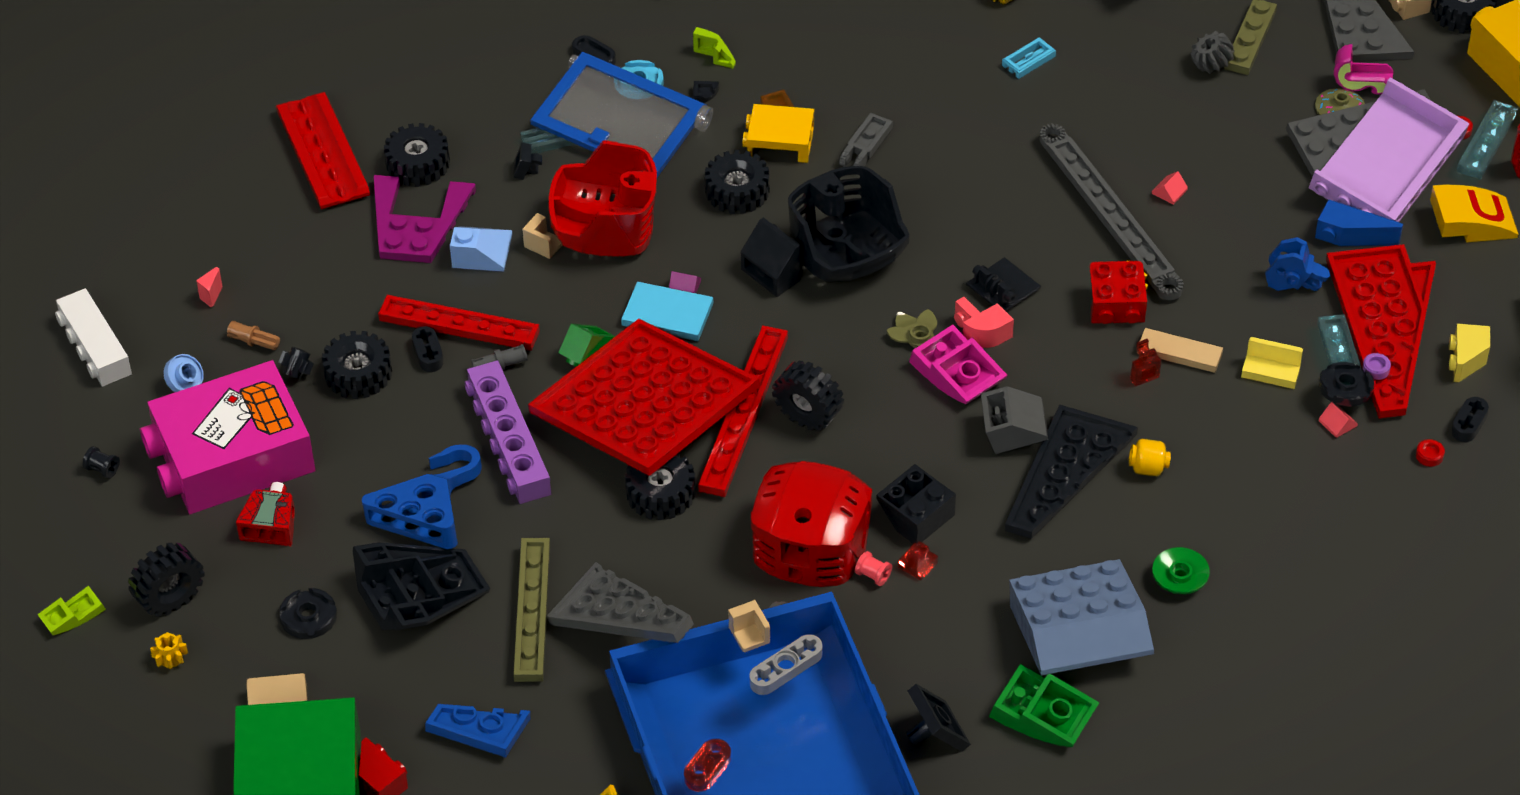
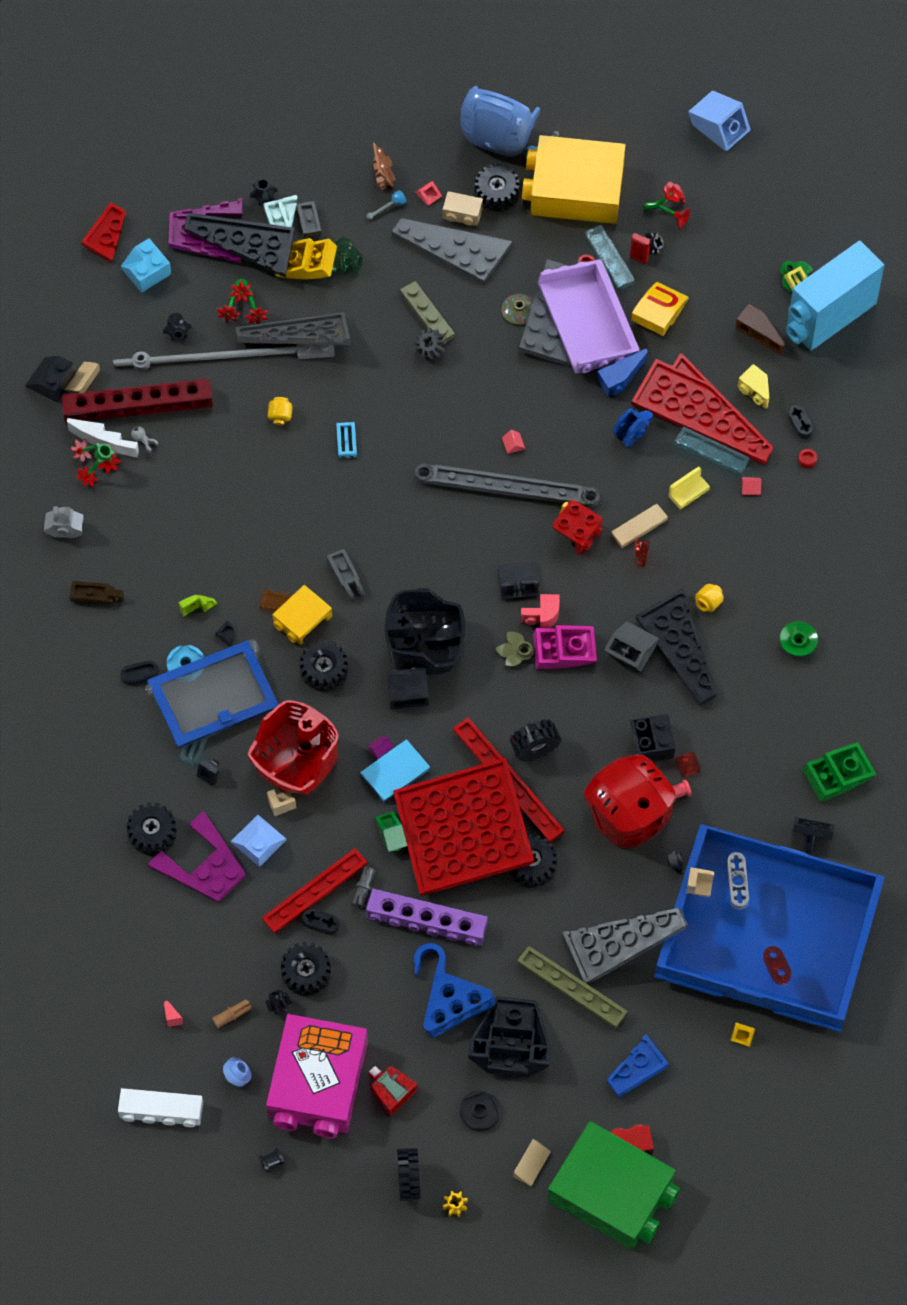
camera: 55 degrees left, 15 degrees up
(67, 615) = (379, 1242): lime slope -> none
(323, 150) = (98, 880): red plate -> none
(1080, 616) = (799, 711): sand blue slope -> none
(1346, 395) = (733, 472): black tile -> none
(1360, 75) = (510, 282): dark pink animal -> none
(1377, 365) = (735, 439): medium lavender tile -> none

